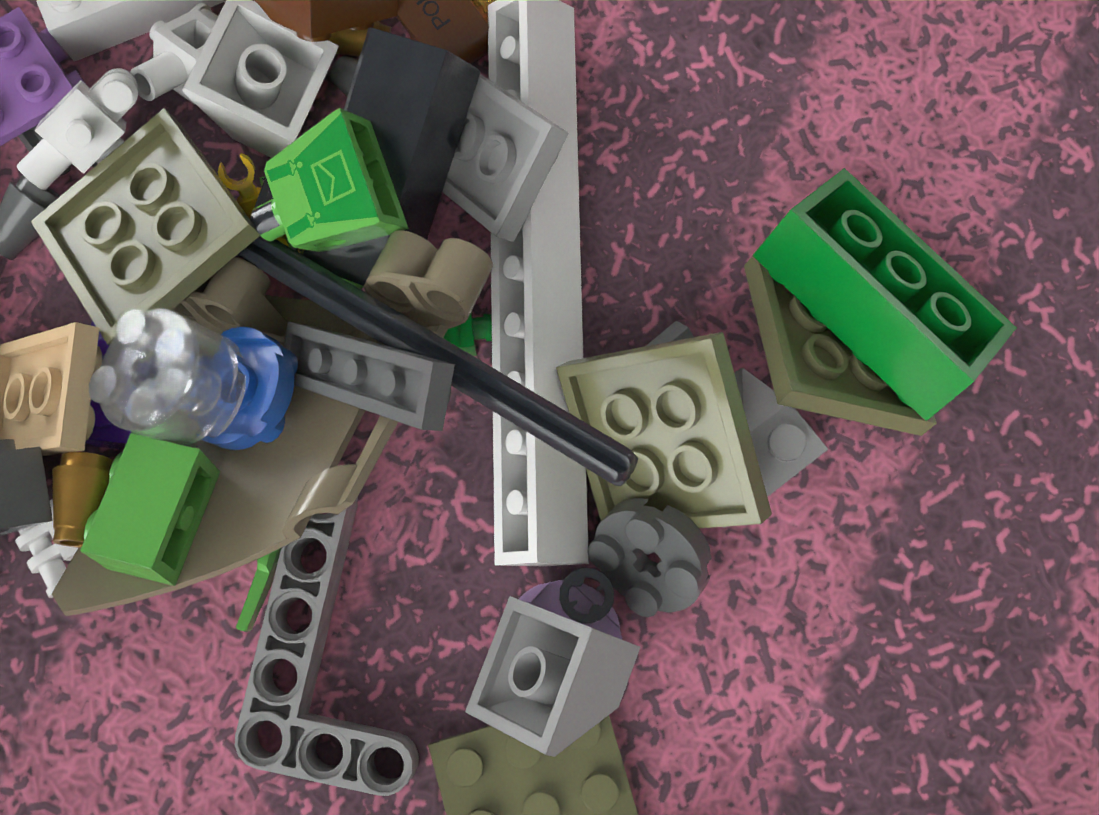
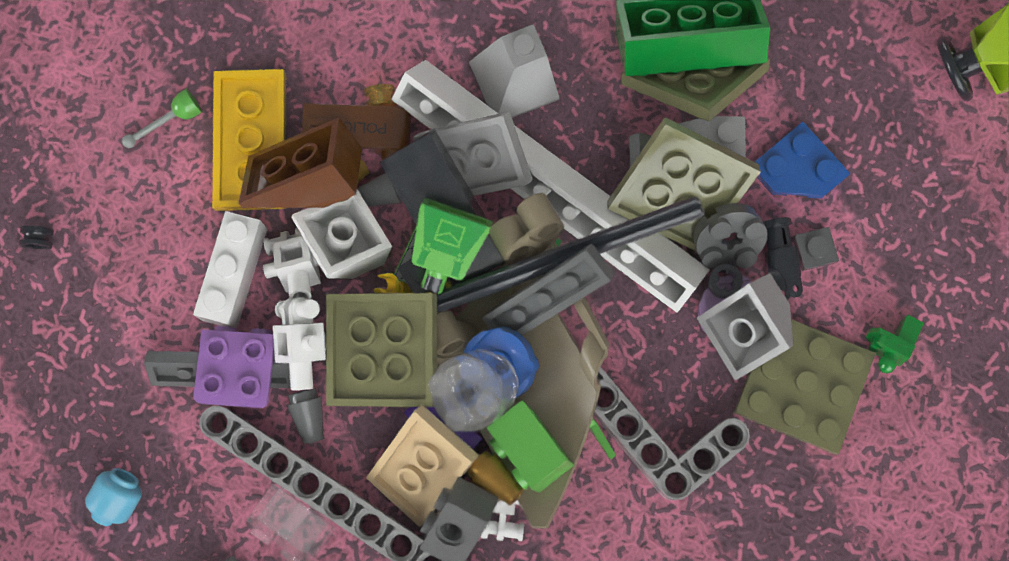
camera: 50 degrees left, 0 degrees up
(648, 129) = (515, 73): none -> light grey slope
(683, 648) = (782, 257): none -> black piece
(734, 683) = (815, 249): none -> dark grey plate
(828, 576) = (800, 166): none -> blue plate

